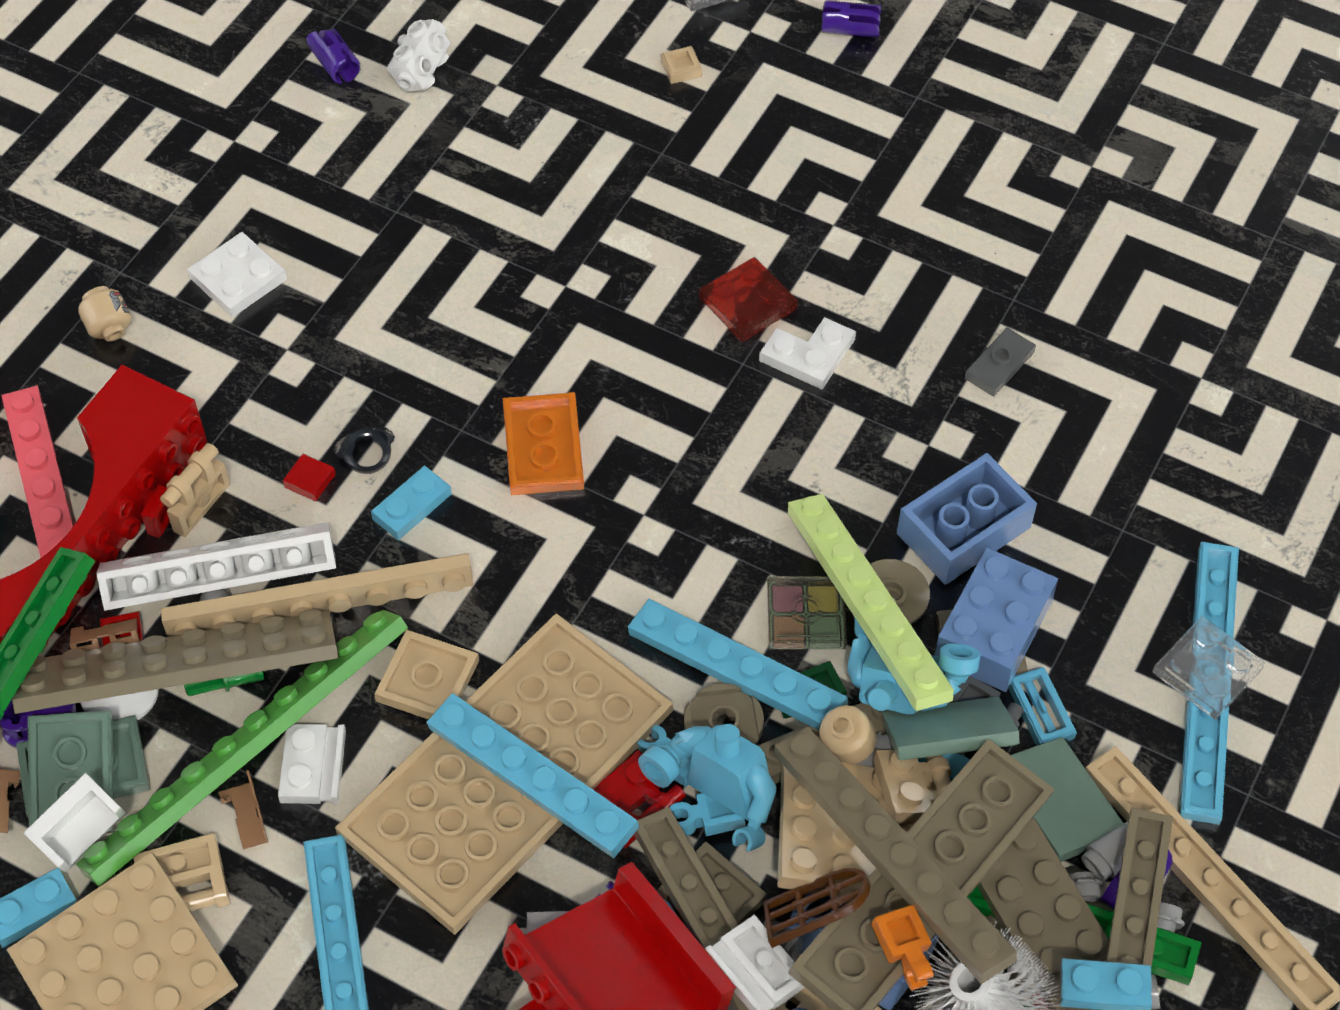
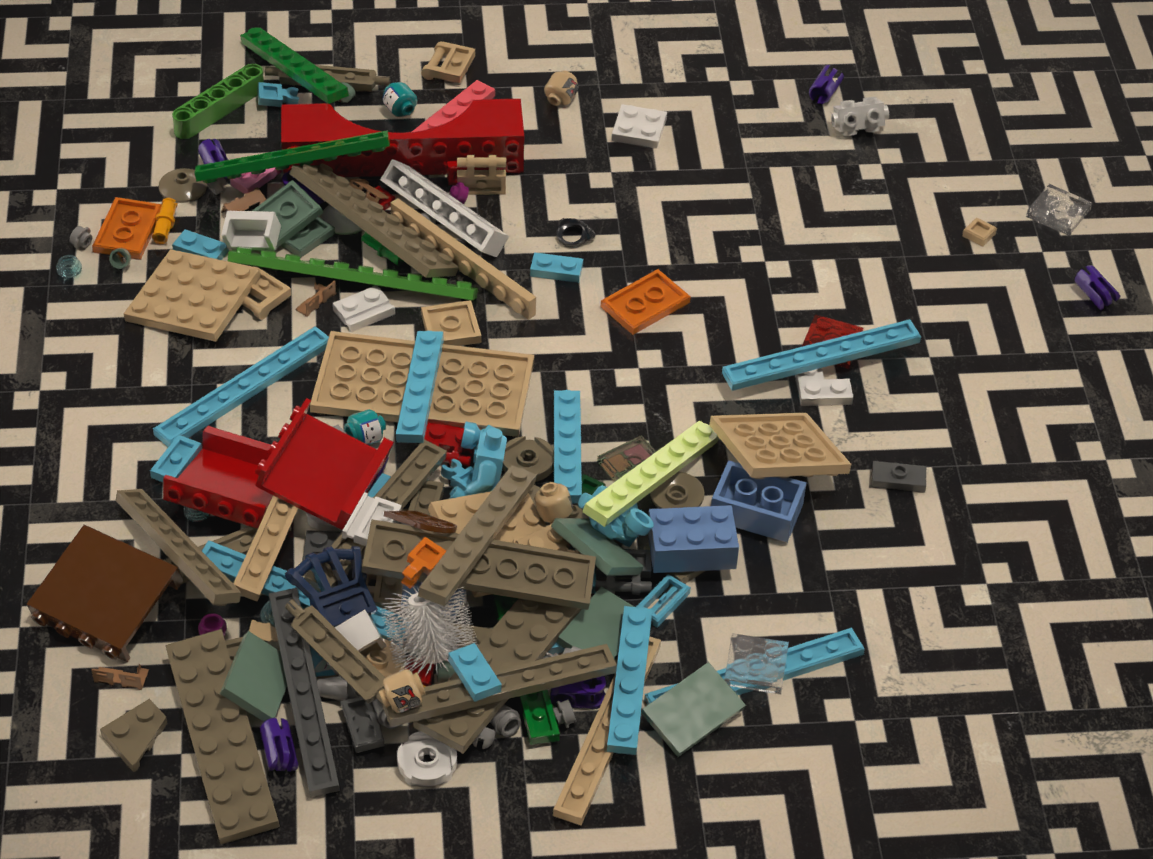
camera: 55 degrees right, 10 degrees down
(198, 532) = (459, 192): none -> magenta plate
(309, 477) = (535, 219): red tile -> none
(545, 882) = (366, 426): none -> teal head
(777, 324) = (820, 355): none -> medium azure tile
(904, 445) = (779, 445): none -> tan plate
(1191, 830) = (629, 681): none -> medium azure plate
(1239, 774) = (693, 709): none -> sand green tile

